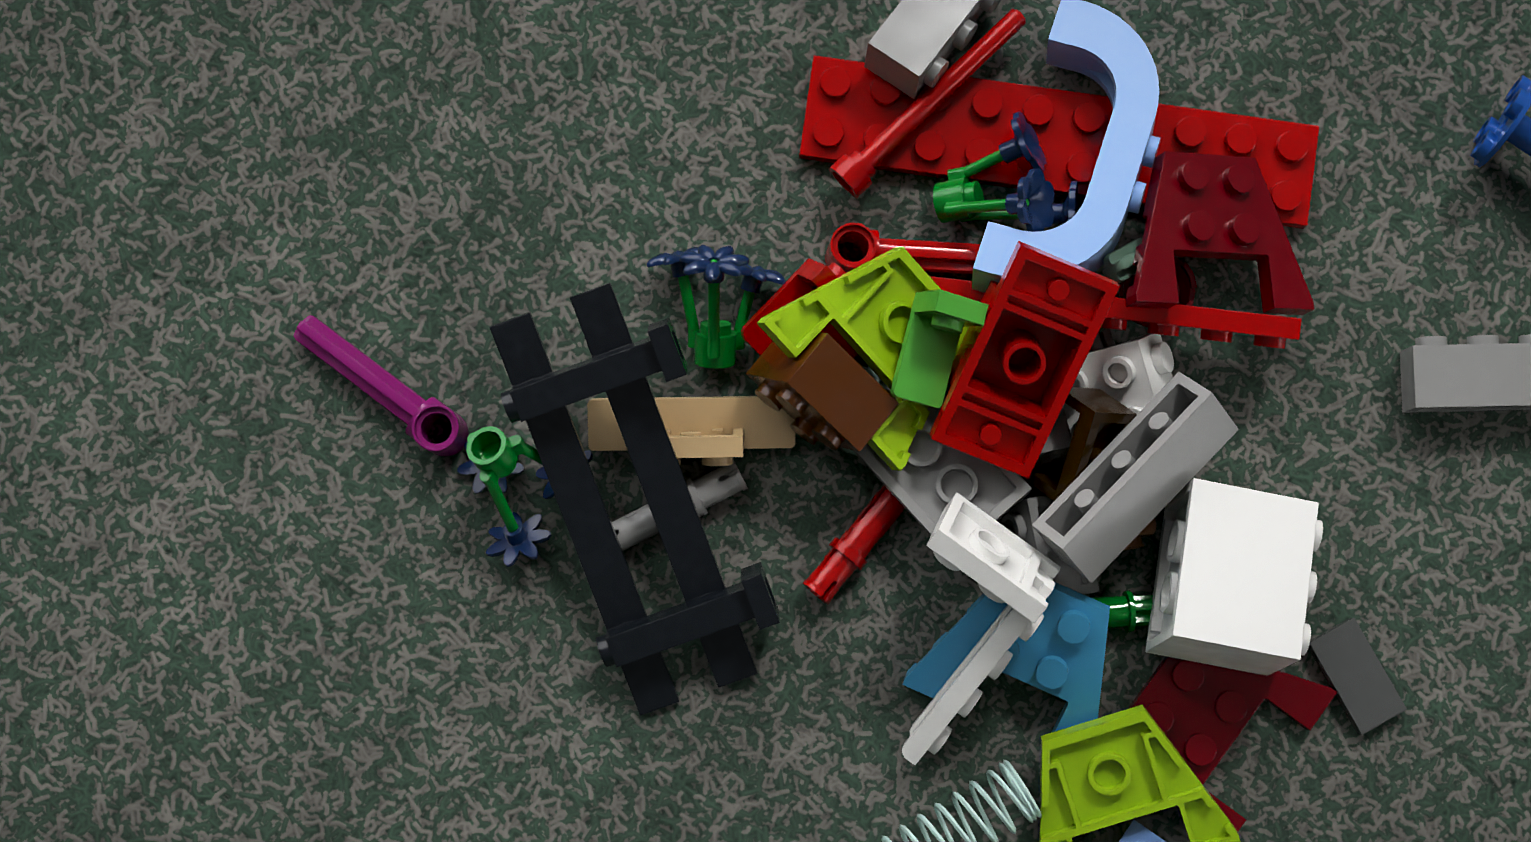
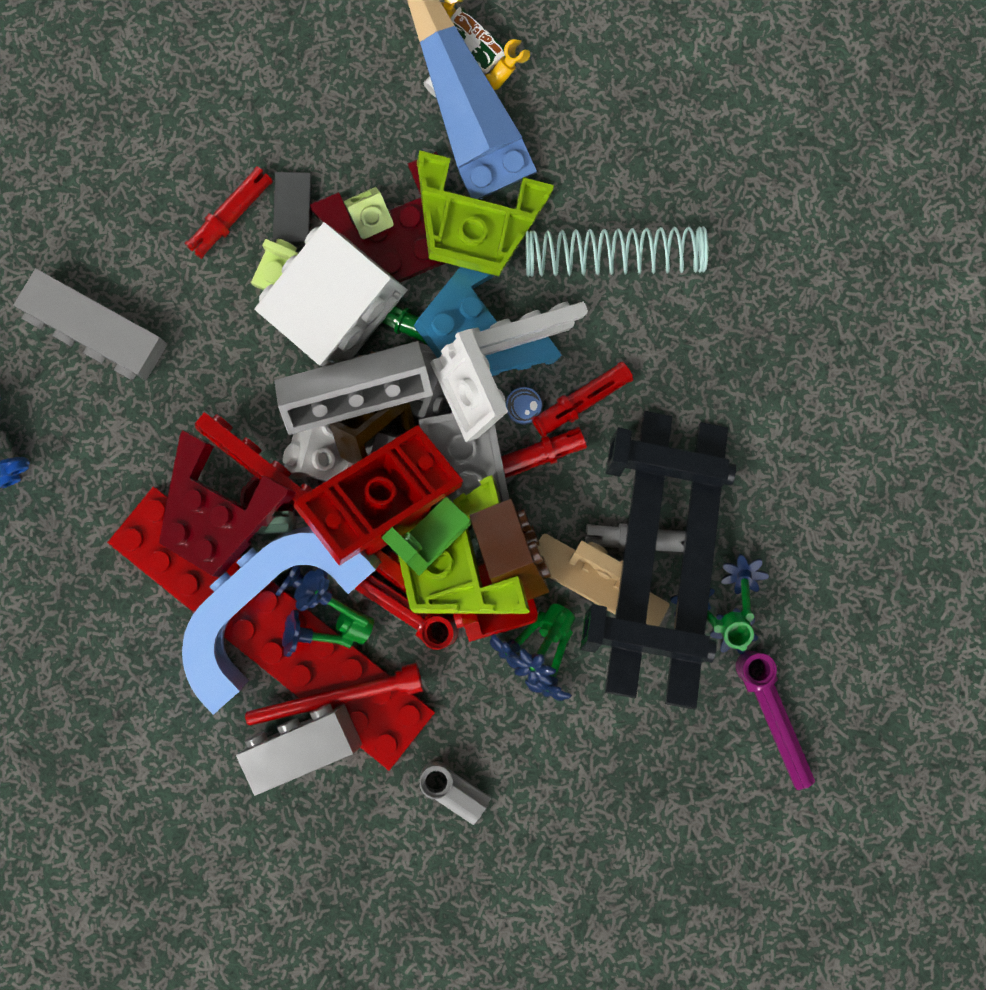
camera: 145 degrees left, 0 degrees up
(717, 73) = (456, 793): none -> light grey piece
(843, 642) = (569, 407): none -> red pin
(912, 592) = (523, 405): none -> medium blue tile
(1256, 723) = (369, 213): none -> yellowish green bracket
(1334, 588) = (272, 262): none -> yellowish green bracket
(1432, 621) = (228, 213): none -> red pin

